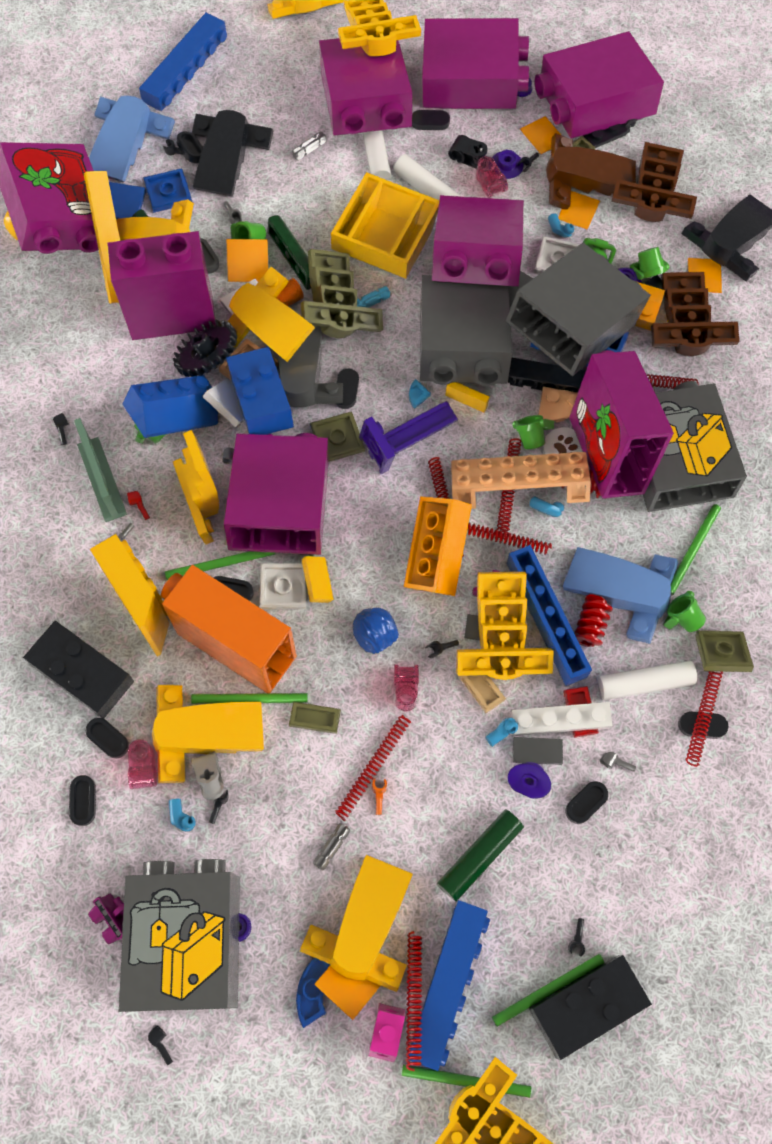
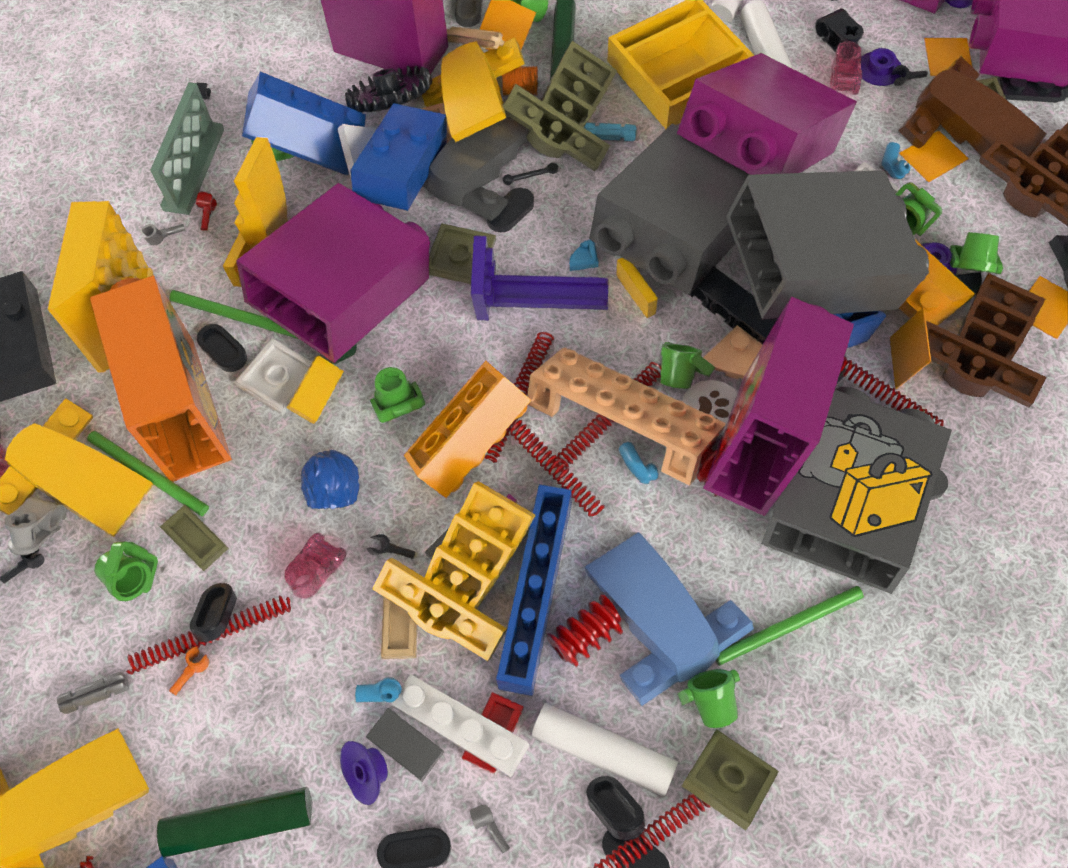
camera: 40 degrees right, 5 degrees down
(240, 279) = (484, 38): none -> tan axle
(293, 764) = (126, 573): none -> bright green piece
(351, 345) = (552, 168): none -> black hinge
(369, 751) = (213, 612): none -> black tile
(370, 554) = (395, 395): none -> bright green piece
(653, 345) = (910, 348): none -> light orange piece
(677, 706) = (615, 808): none -> black tile

